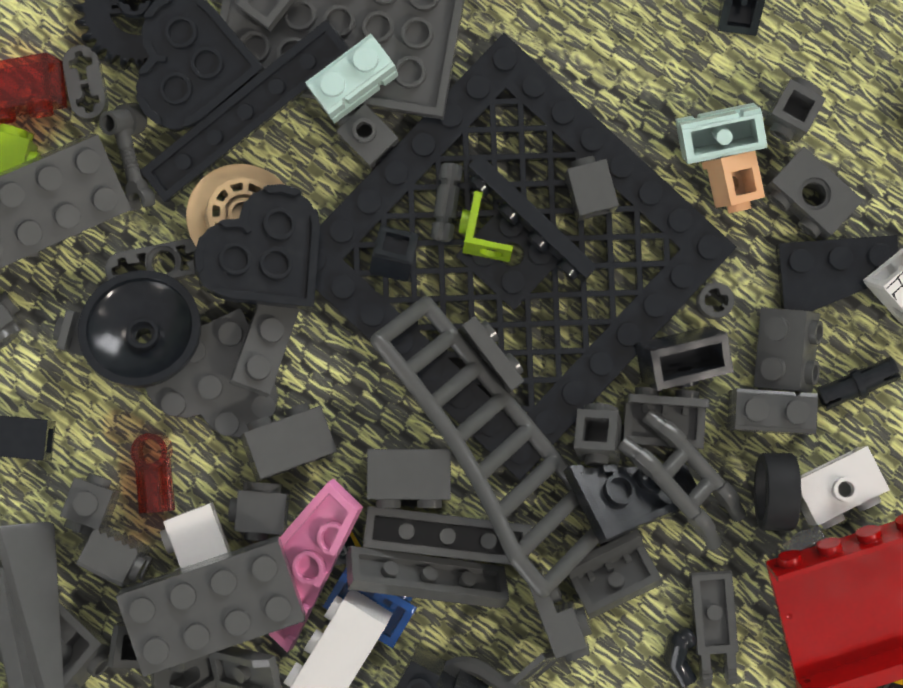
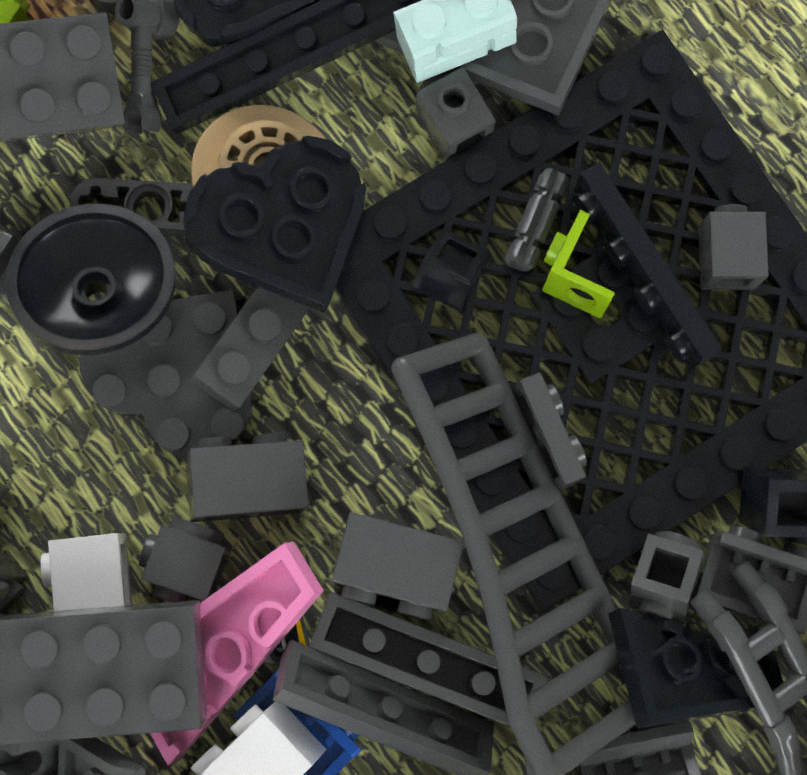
camera: 20 degrees right, 5 degrees down
(154, 479) = (54, 481): clear red piece -> none

